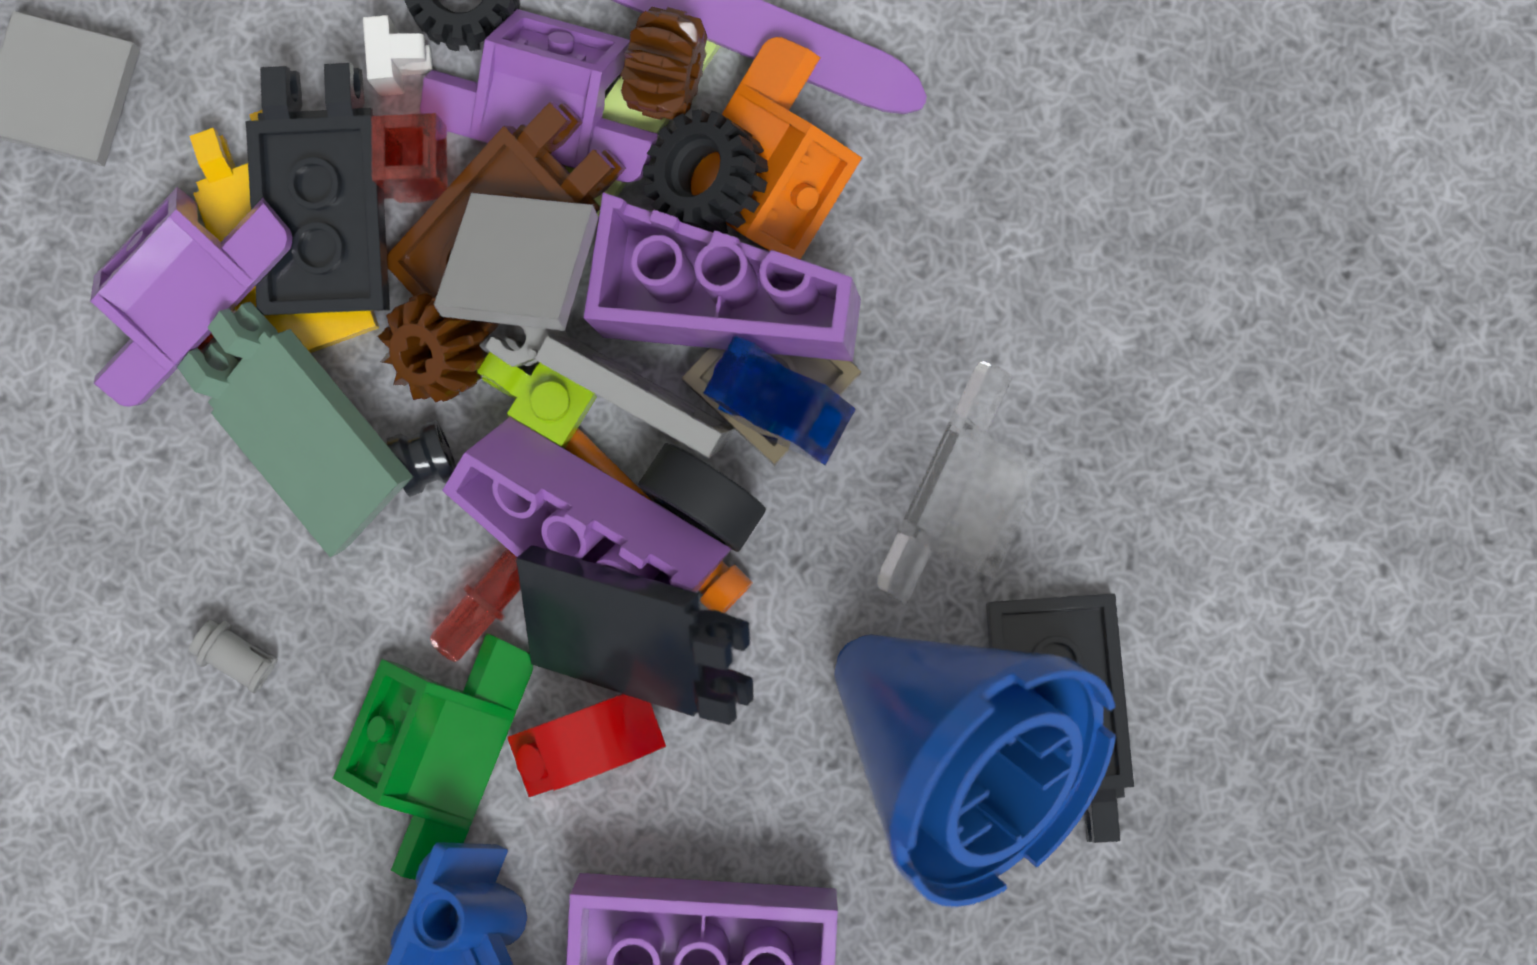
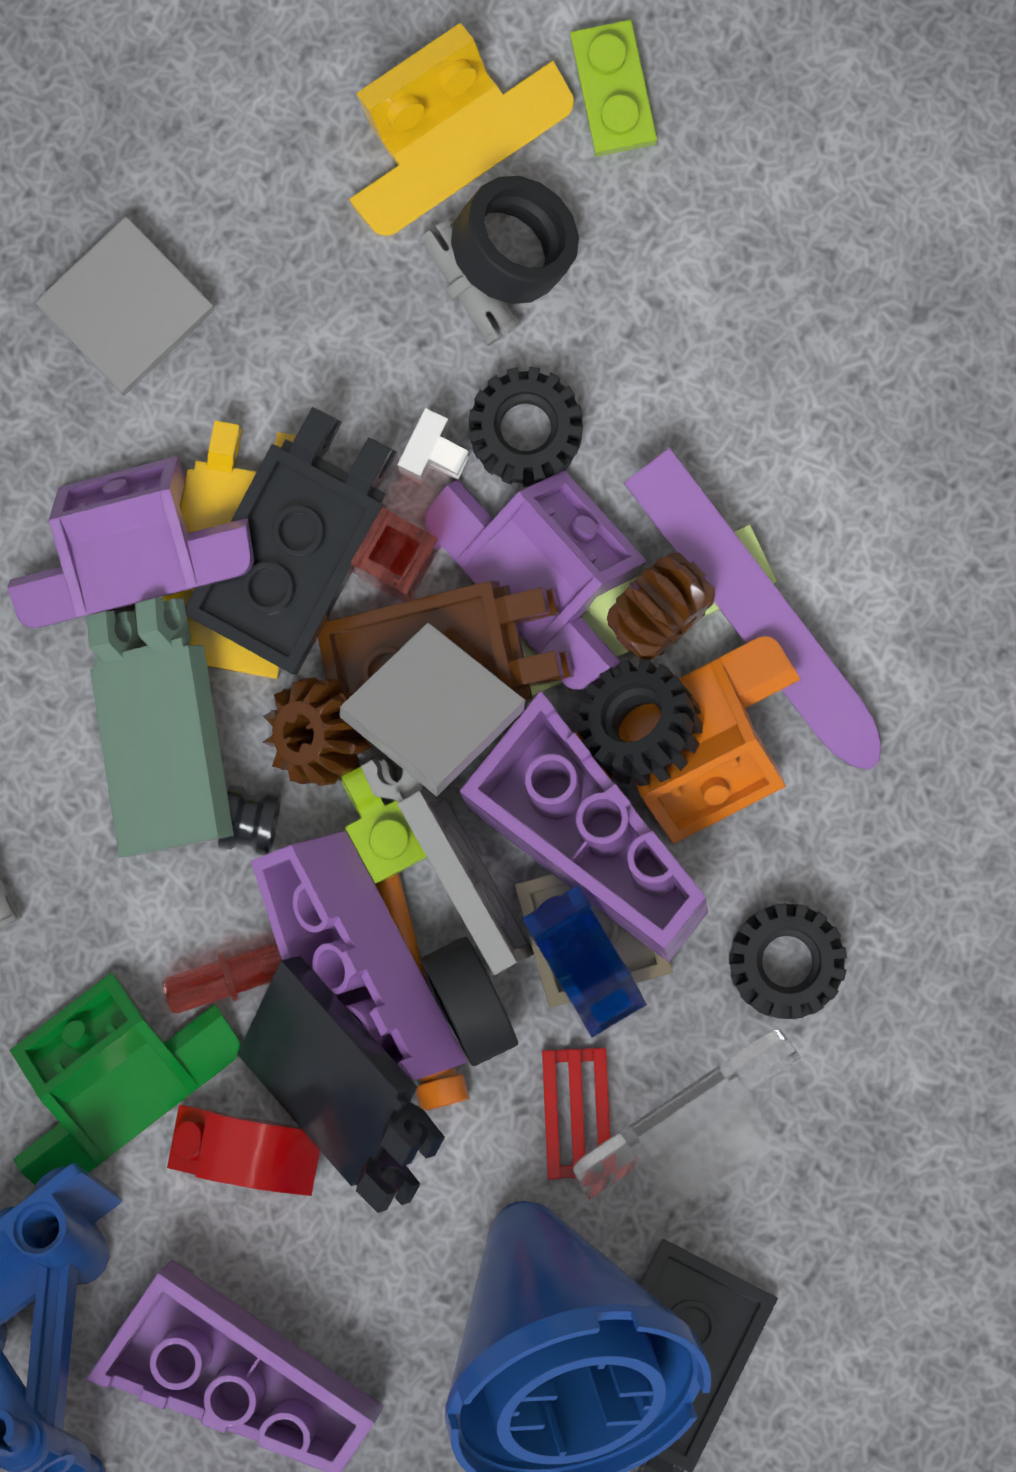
camera: 30 degrees right, 0 degrees up
(821, 496) = (574, 1058): none -> red tile
(962, 269) = (826, 954): none -> black tyre

